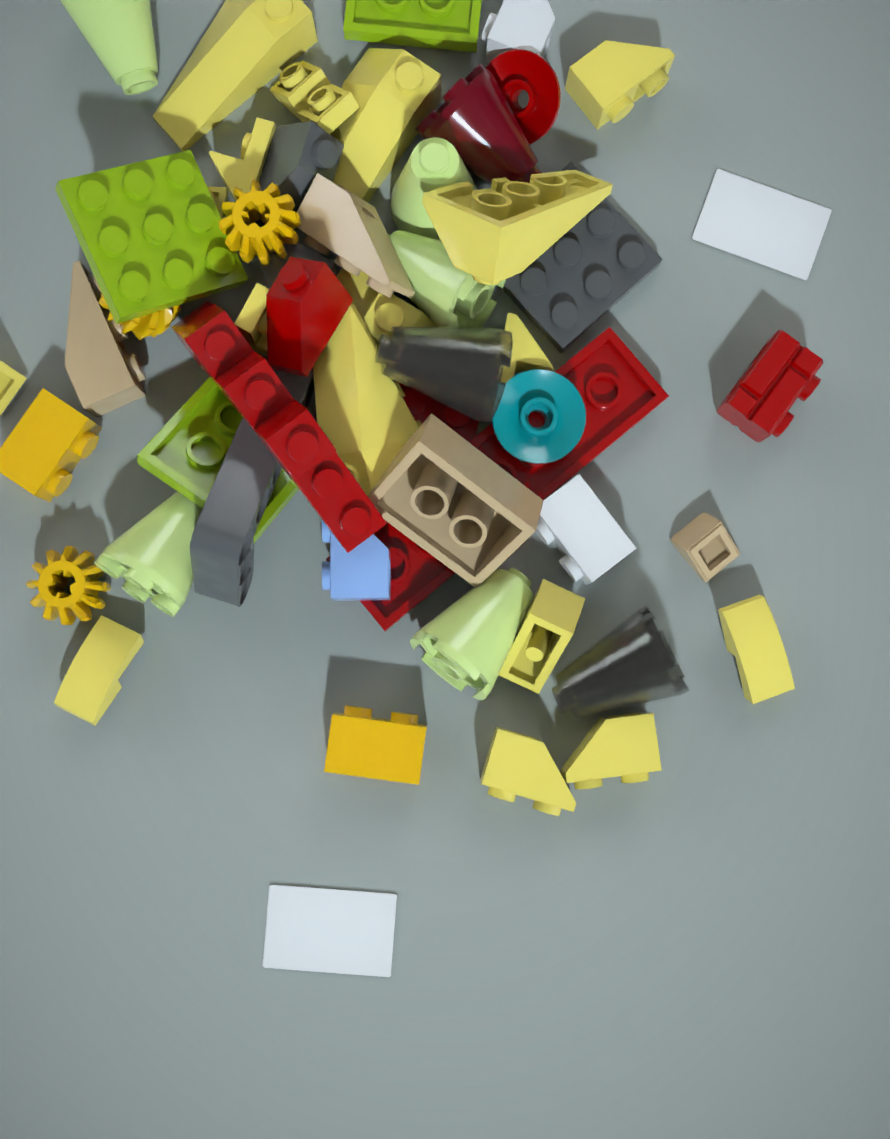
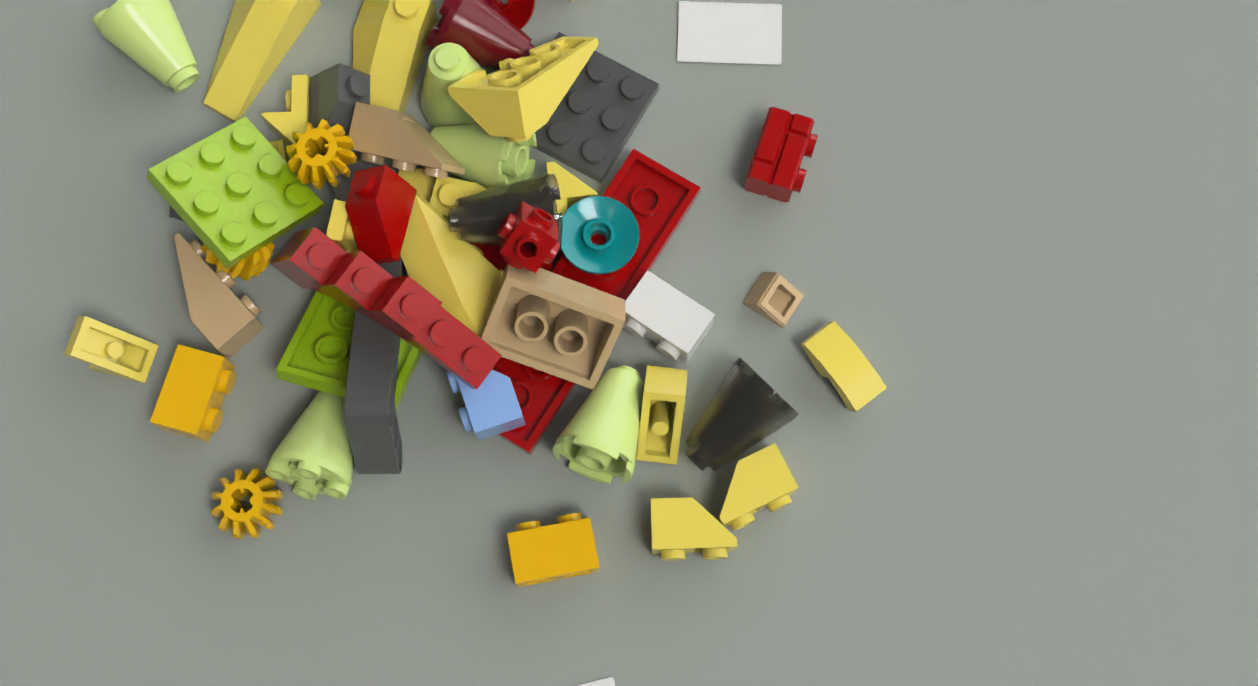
camera: 15 degrees left, 10 degrees down
(95, 670) = (292, 565): light yellow slope -> none
(312, 97) = (328, 45): light yellow slope -> none
(458, 402) = (527, 226): none -> red brick

